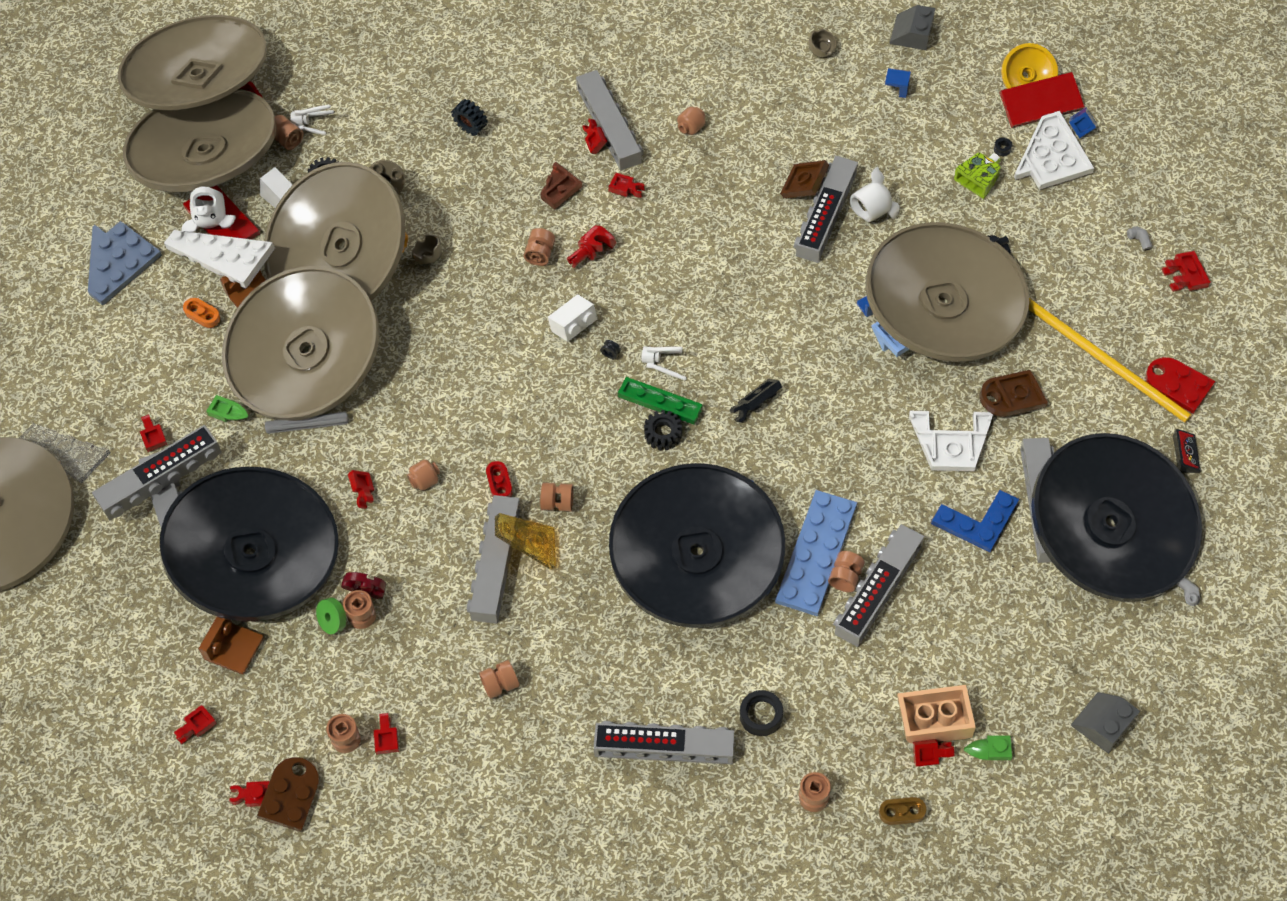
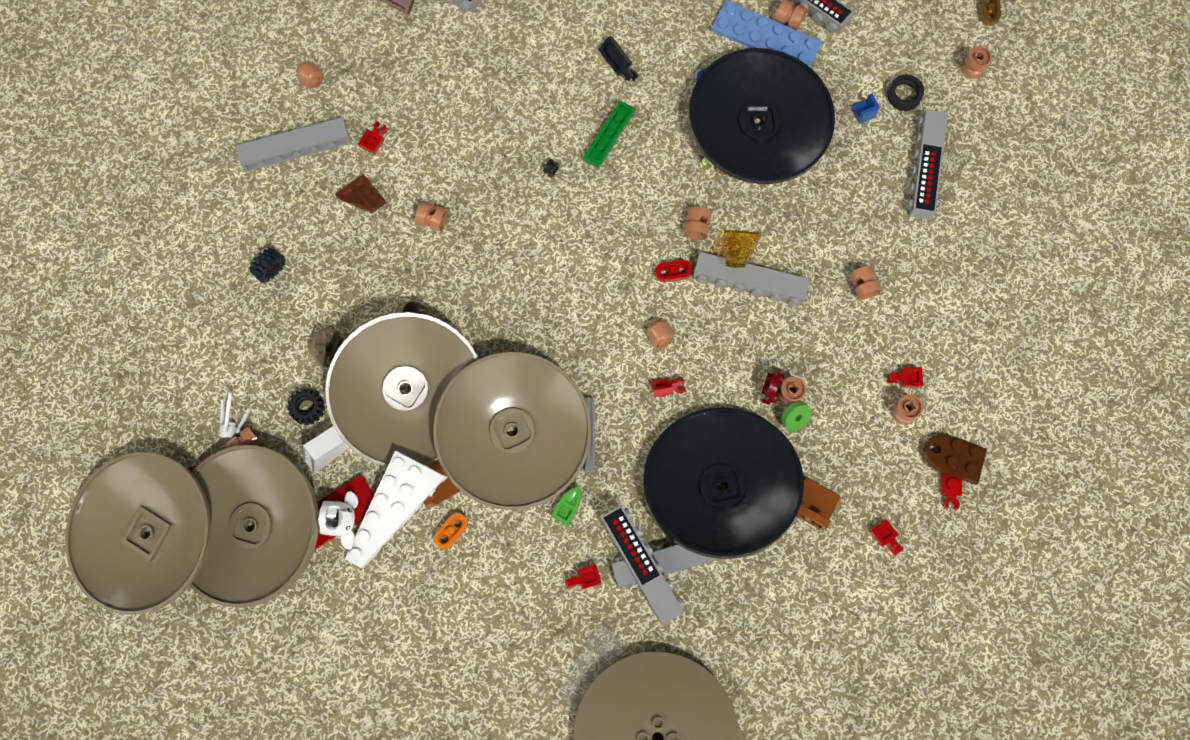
camera: 85 degrees left, 15 degrees up
(117, 260) = (369, 618): sand blue wing -> none
(572, 318) = (516, 194): white brick -> none
(589, 246) = (437, 172): red piece -> none
(595, 139) = (313, 158): red plate -> none
(652, 355) = (561, 135): white plant -> none
(663, 440) = (635, 144): black tyre -> none
(730, 668) = (866, 110): none -> blue panel

